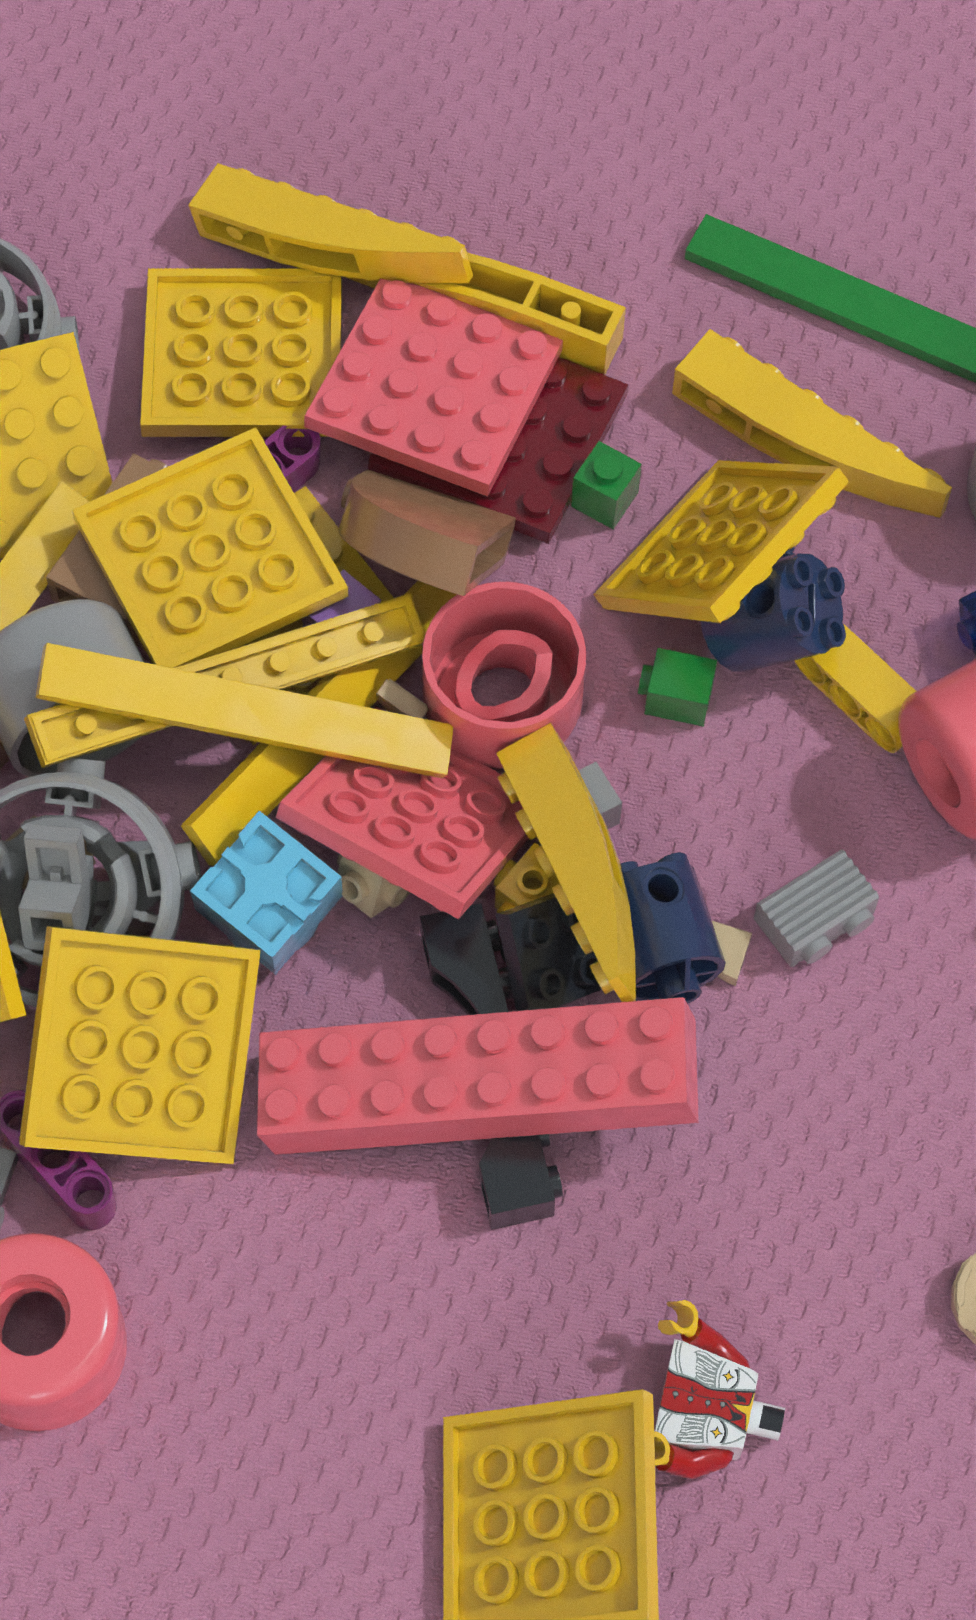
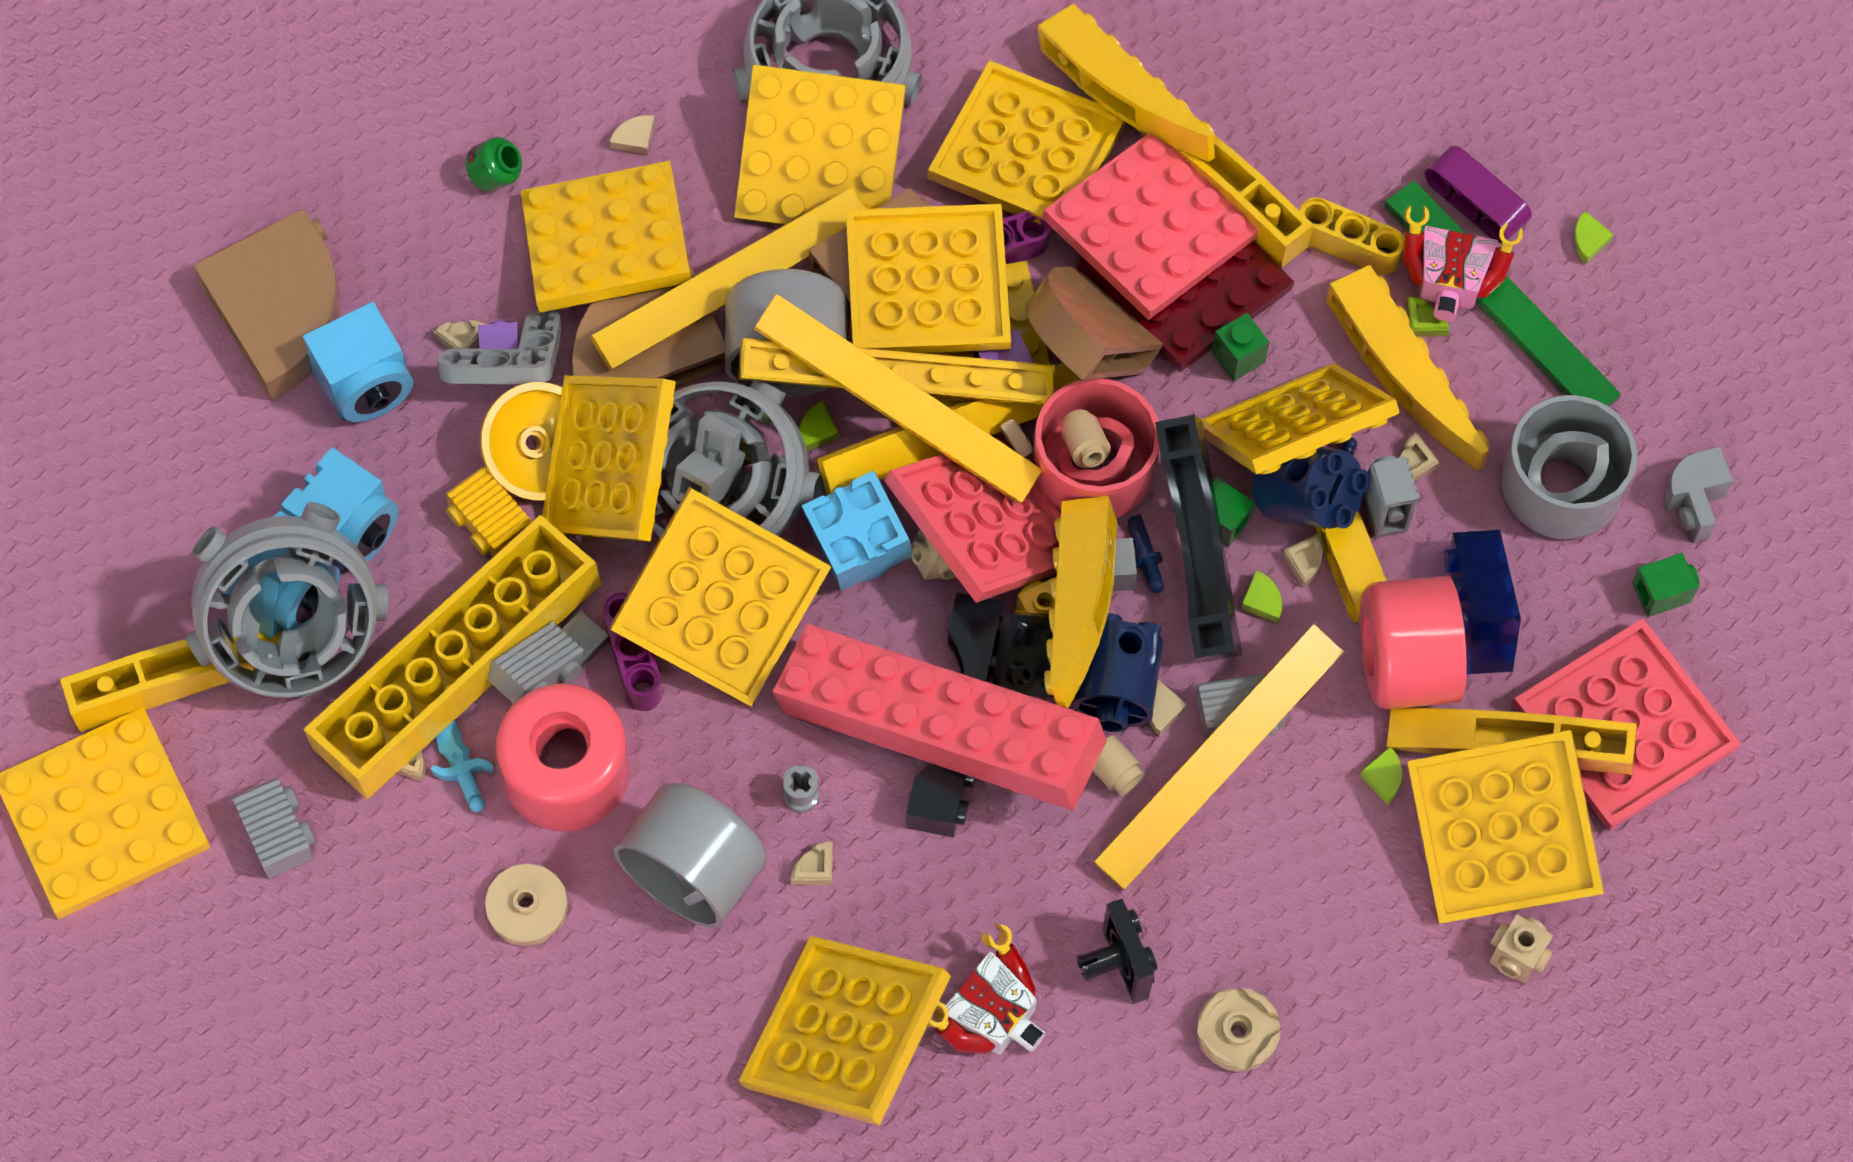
camera: 25 degrees right, 0 degrees up
(77, 1567) = (529, 924): none -> tan plate
(152, 784) = (817, 427): none -> lime tile
(257, 1384) = (691, 854): none -> light grey piece
(353, 1252) = (799, 800): none -> light grey bush
(405, 1327) = (814, 866): none -> tan tile
(486, 667) = (1084, 438): none -> tan brick
(620, 779) = (1146, 558): none -> dark blue piece
(677, 728) = (1196, 511): none -> black arch
(686, 293) = (1359, 251): none -> yellow beam
(716, 1045) = (1118, 767): none -> tan brick
(776, 769) = (1263, 598): none -> lime tile
(785, 201) = (1477, 193): none -> magenta beam
(797, 365) = (1422, 319): none -> lime tile
(800, 702) = (1305, 558): none -> tan tile
(805, 291) = (1454, 265): none -> torso
(824, 983) = (1218, 757): none -> yellow tile
(832, 1268) = (1122, 953): none -> black plate
(867, 534) = (1420, 457): none -> tan tile
(872, 585) = (1390, 496): none -> light grey brick
(932, 200) = (1590, 237): none -> lime tile

